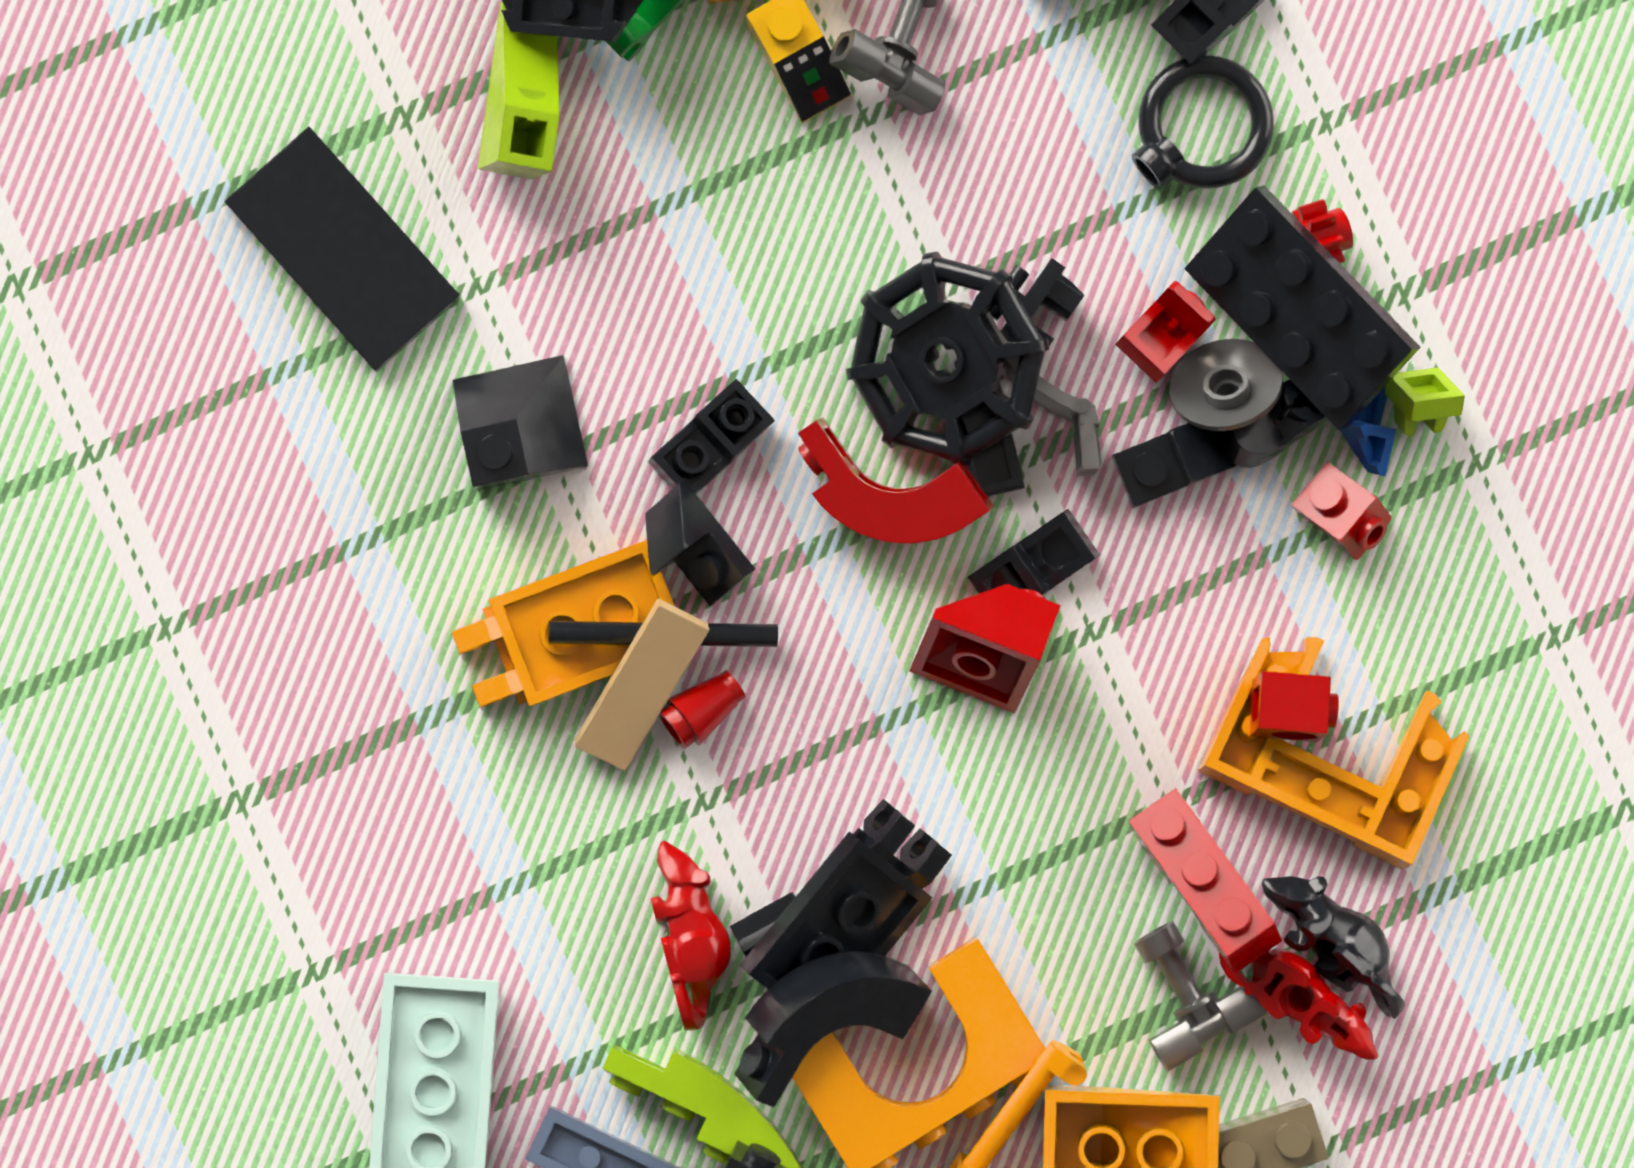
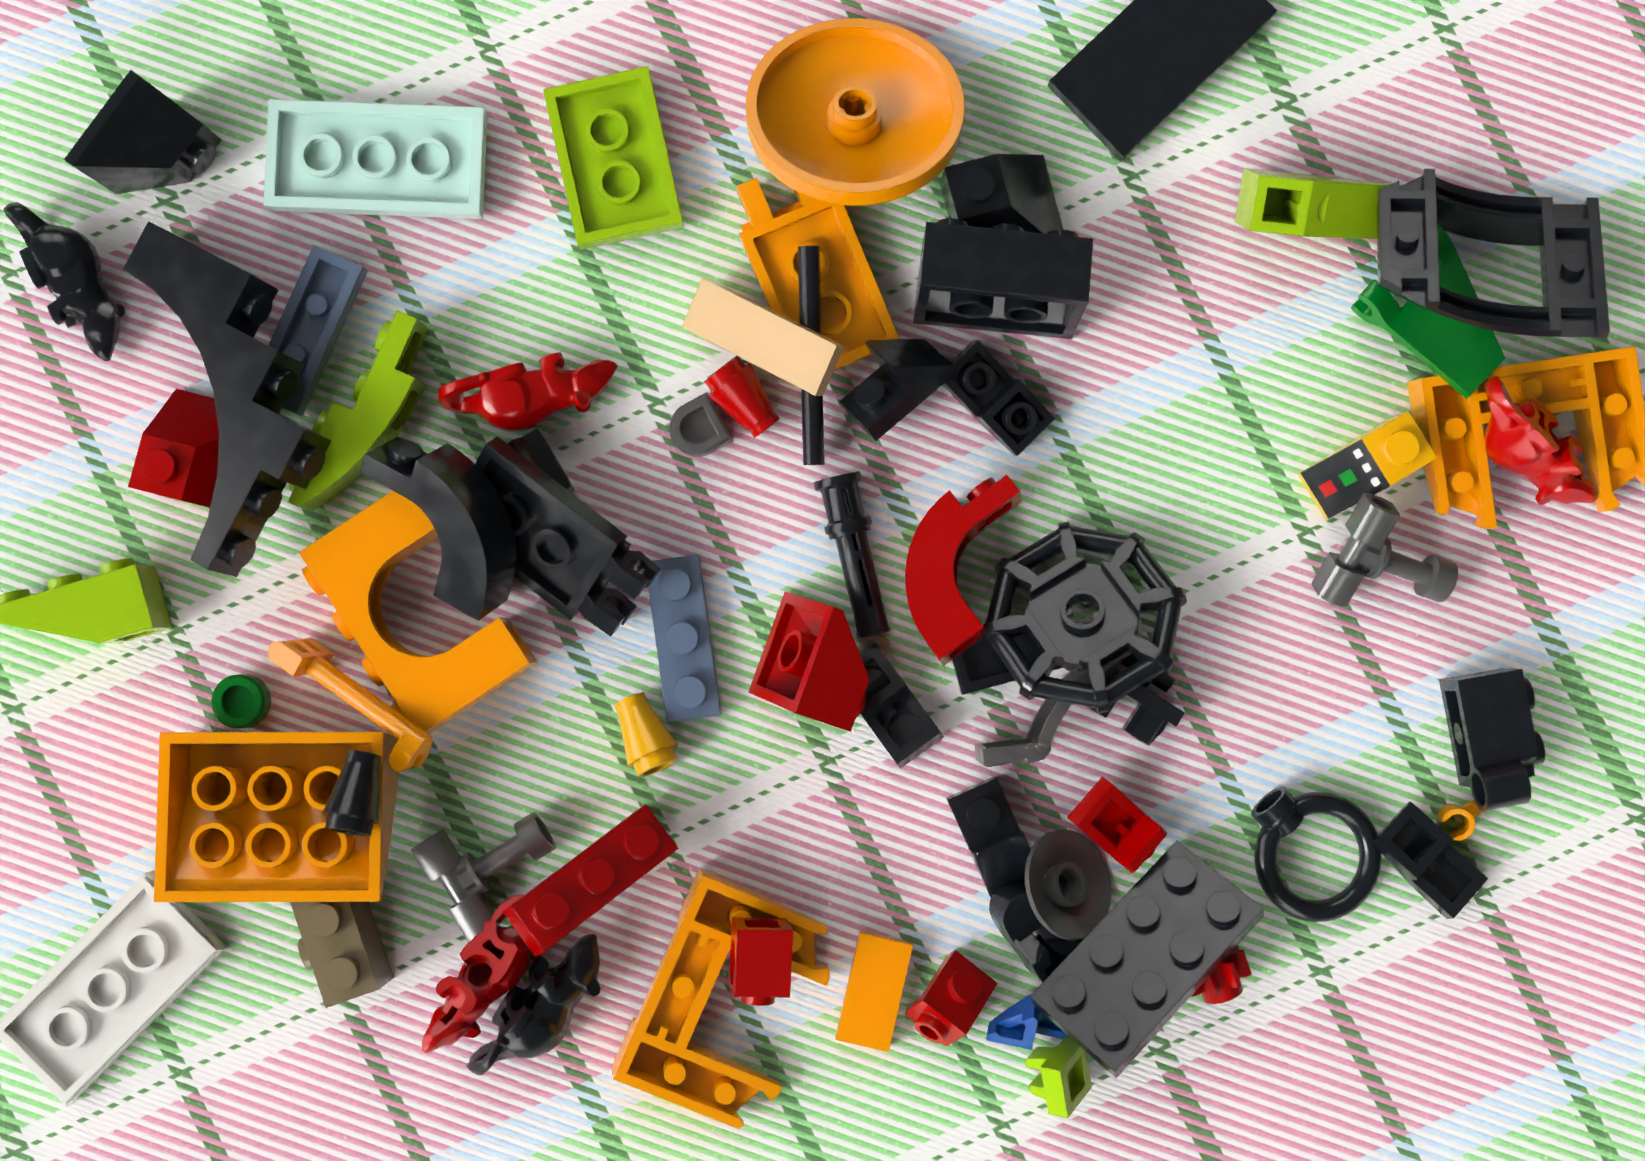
camera: 90 degrees right, 0 degrees up
(406, 578) = (854, 111): none -> light orange dish
(441, 837) = (613, 158): none -> lime plate
(590, 430) = (1003, 279): none -> black slope
(732, 756) = (698, 427): none -> flat silver tile
(846, 600) = (848, 527): none -> black pin
(958, 779) = (684, 640): none -> sand blue plate
(1059, 822) = (644, 736): none -> yellow cone
(1111, 1115) = (355, 796): none -> black cone
(1331, 591) = (874, 990): none -> light orange tile

